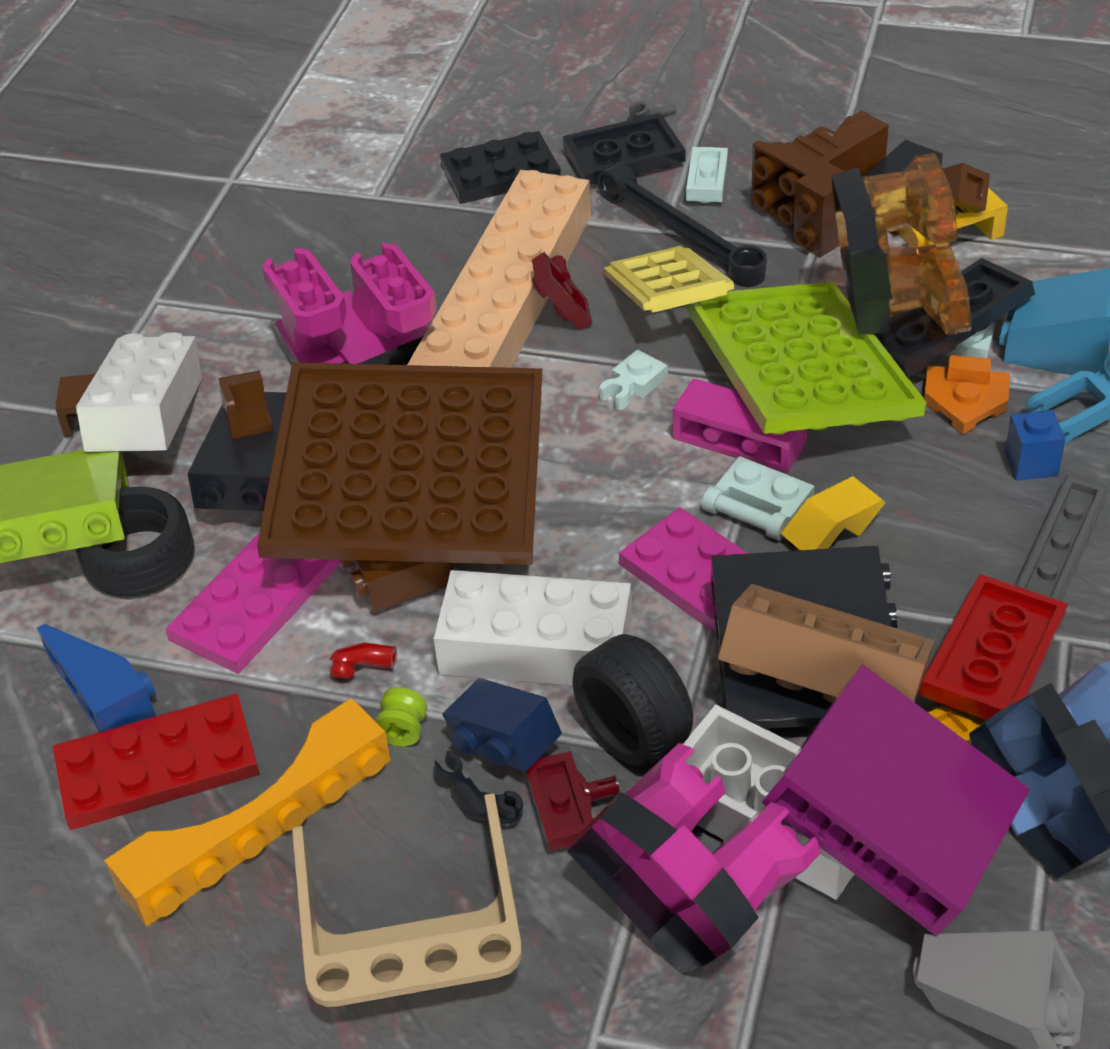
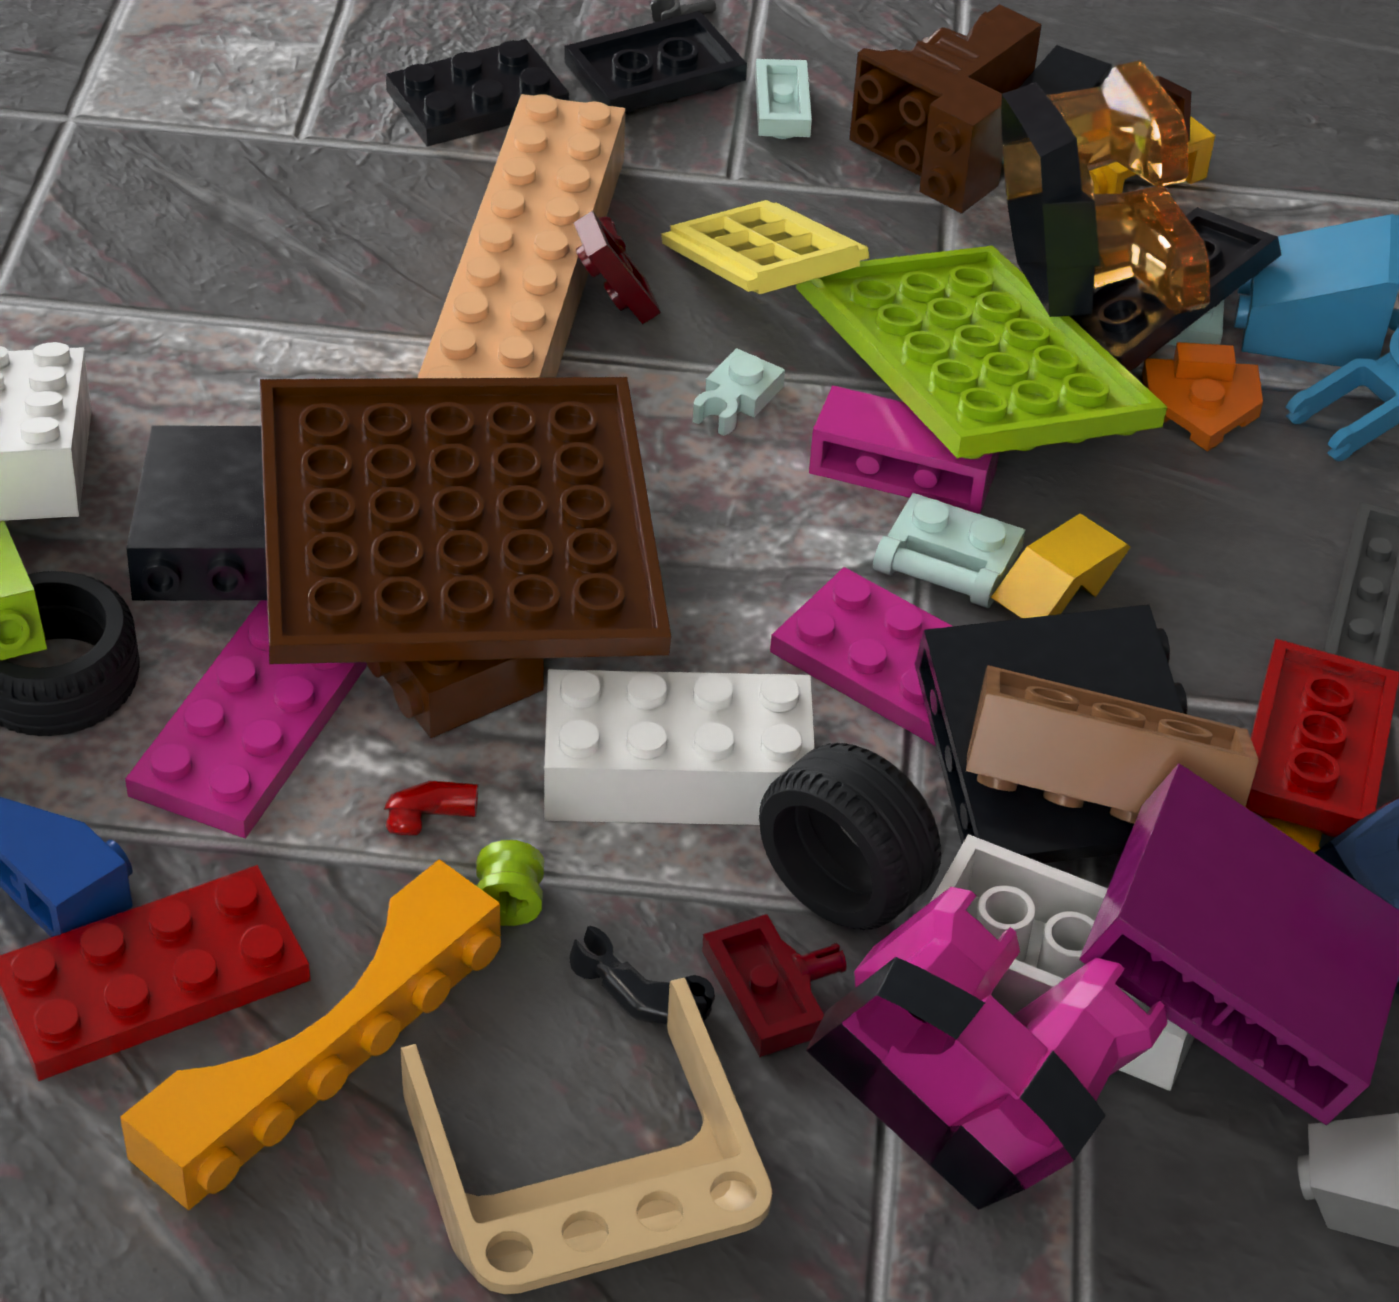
camera: 15 degrees left, 0 degrees up
(245, 404) = (190, 444): reddish brown panel -> none
(370, 326) = (354, 321): dark pink piece -> none
(502, 724) = (664, 882): dark blue brick -> none
(620, 184) = (760, 168): black piece -> none
(1034, 445) = (1313, 461): blue brick -> none

